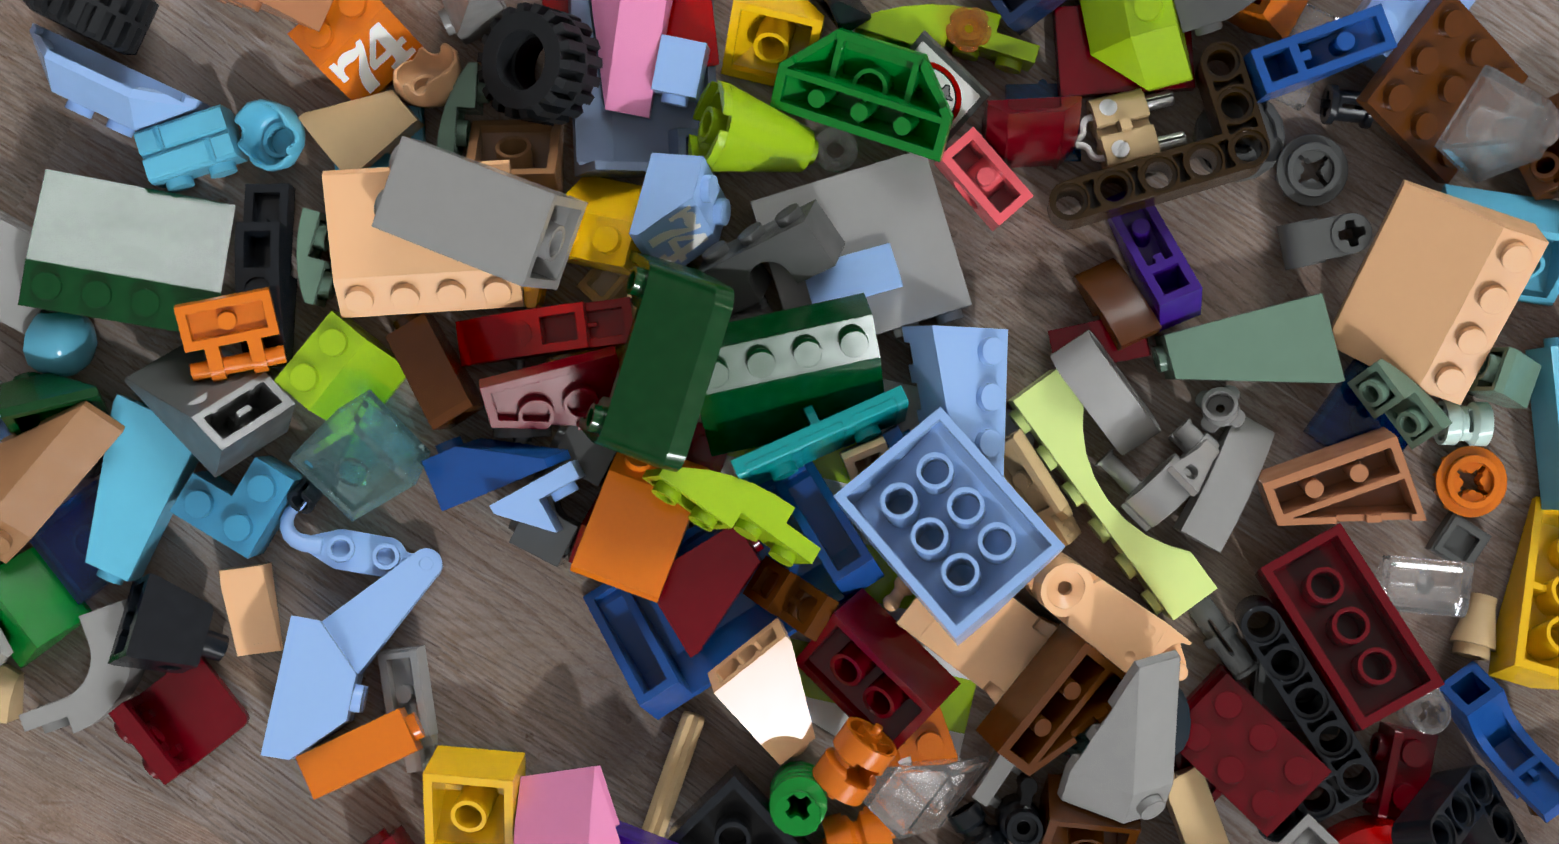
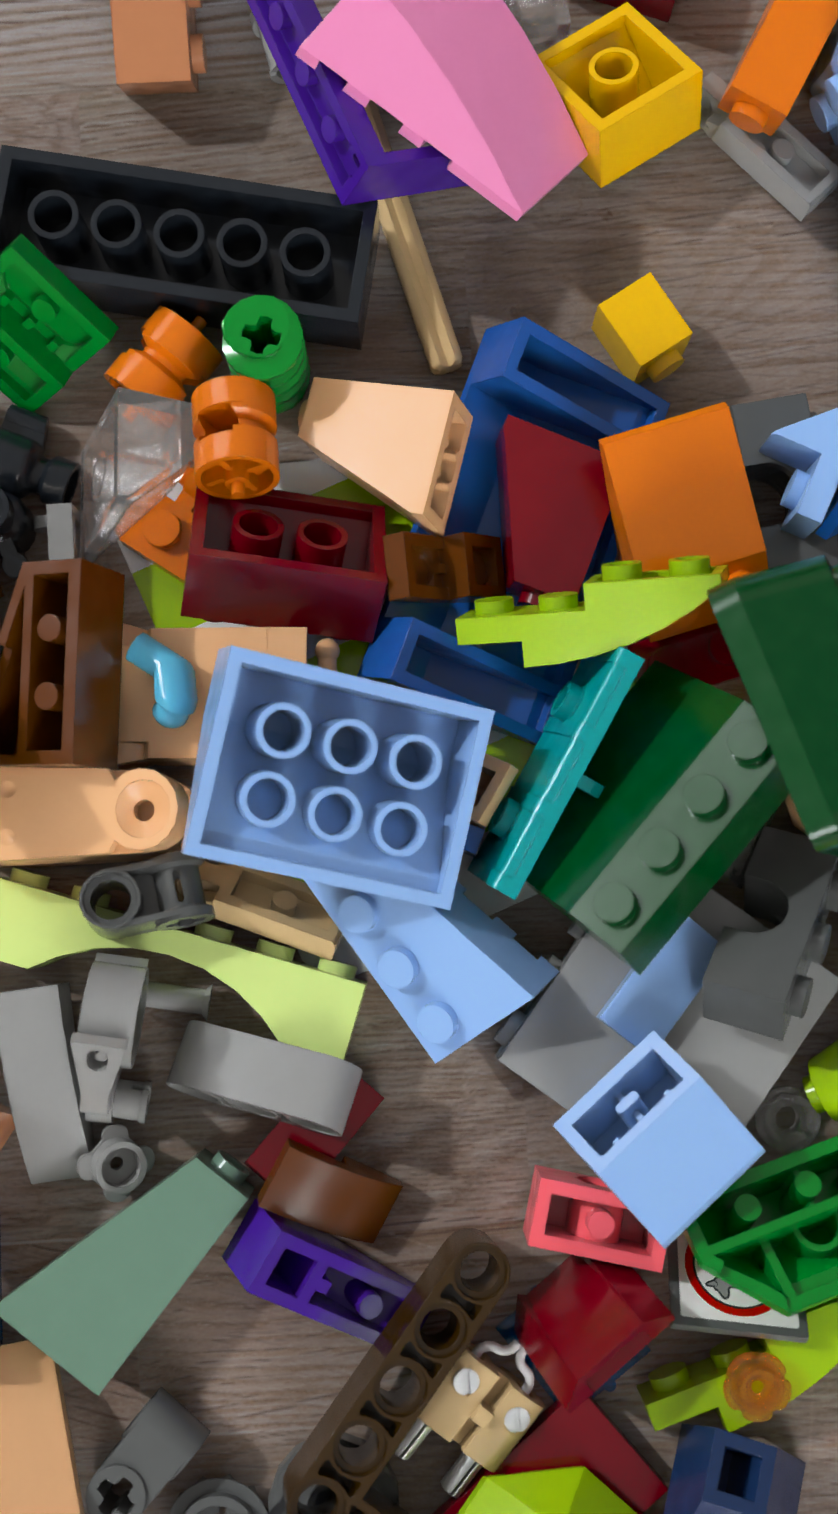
camera: 145 degrees right, 5 degrees down
(568, 649) = (642, 331): none -> yellow brick
(923, 199) = (659, 1138): none -> light blue slope
(993, 649) = (173, 680): none -> medium azure arm
(1094, 537) = (152, 896): none -> dark grey piece

